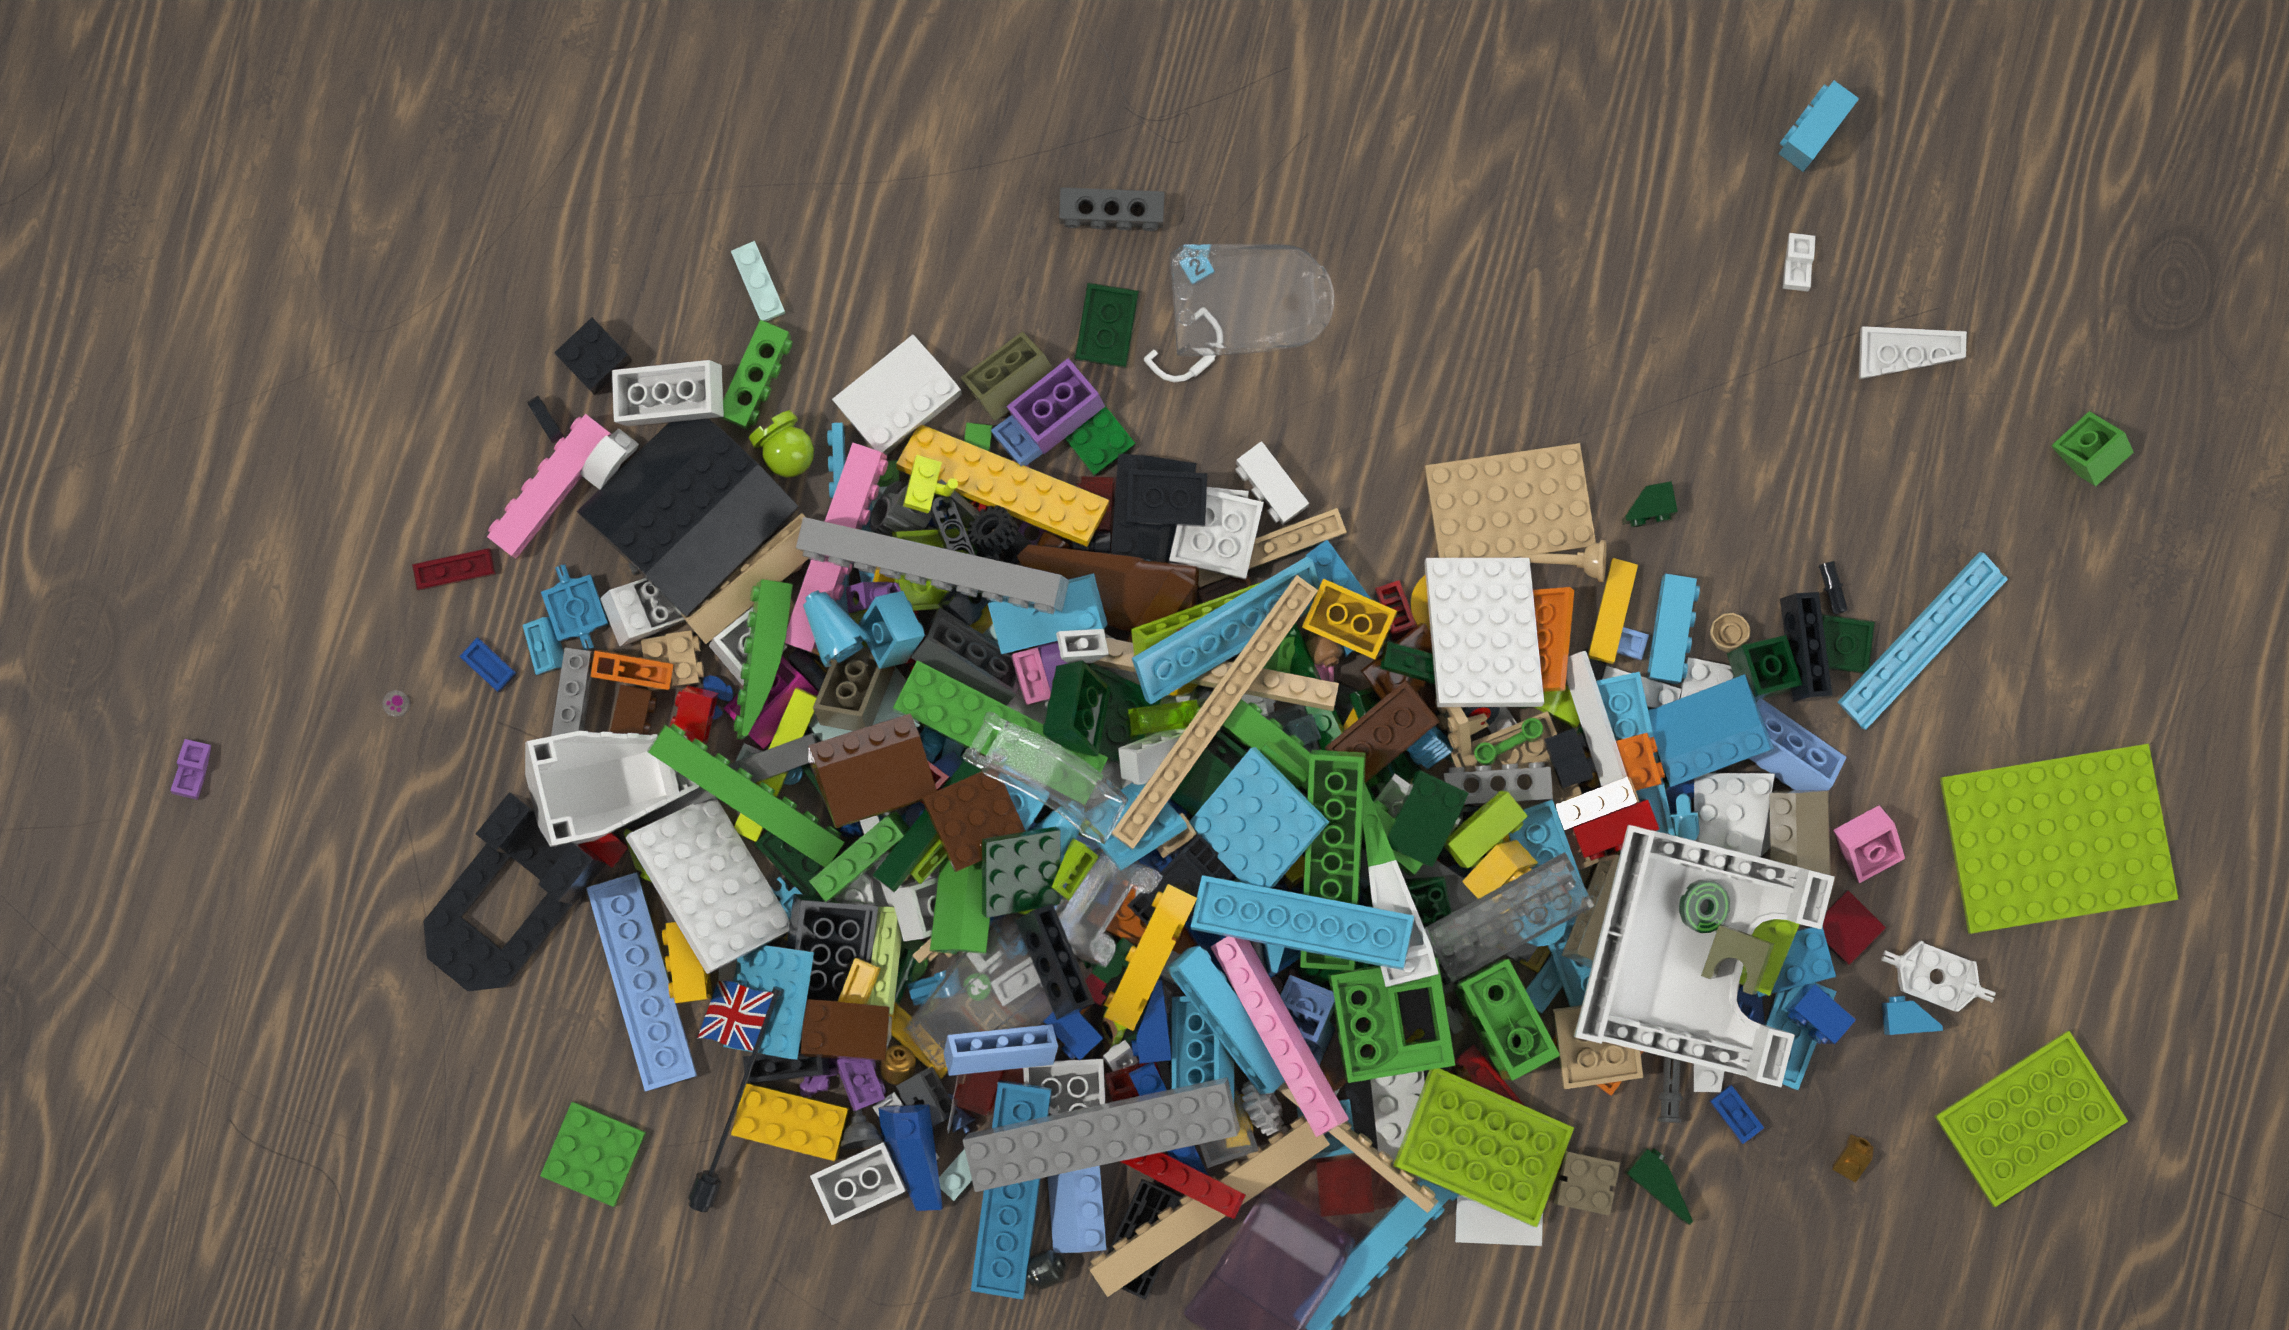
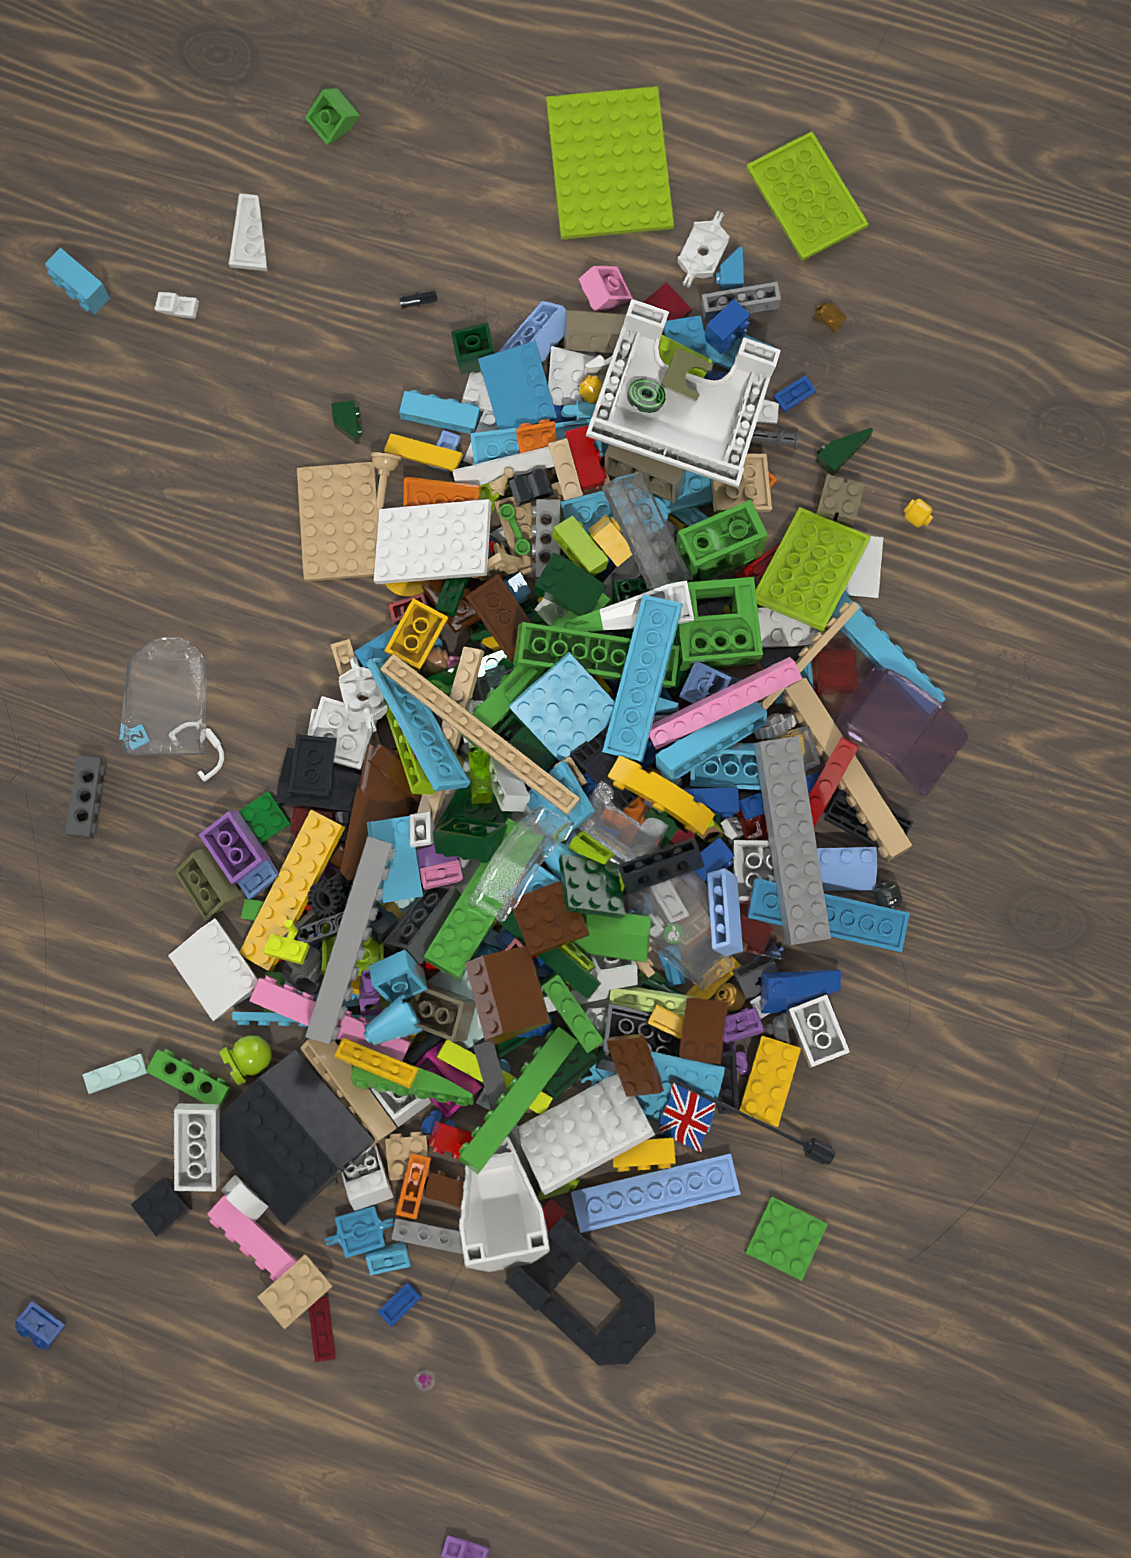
camera: 85 degrees left, 5 degrees down
(440, 219) = (38, 1326): none -> blue bracket
(494, 532) = (295, 1291): none -> tan plate
(545, 419) = (208, 1248): black beam -> none
(781, 610) = (376, 1063): none -> yellow tile
(793, 942) = (635, 1065): none -> reddish brown plate
(956, 1177) = (812, 955): light aqua plate -> none
(1106, 325) = (175, 807): dark green tile -> none
(1271, 484) = (308, 691): white brick -> none
(1282, 544) = (359, 683): none -> white plate
(1569, 716) = (500, 484): none -> tan piece
(1577, 1292) = (918, 513): none -> yellow head
(1715, 830) = (590, 388): none -> yellow head
(1730, 632) = (445, 371): tan hair -> none
(1747, 838) = (597, 366): none -> white slope
(1807, 642) = (448, 318): black brick -> none
(1848, 643) = (460, 295): dark green tile -> none
(1864, 1033) = (751, 298): none -> light grey brick
(1922, 640) = (461, 241): medium azure plate -> none

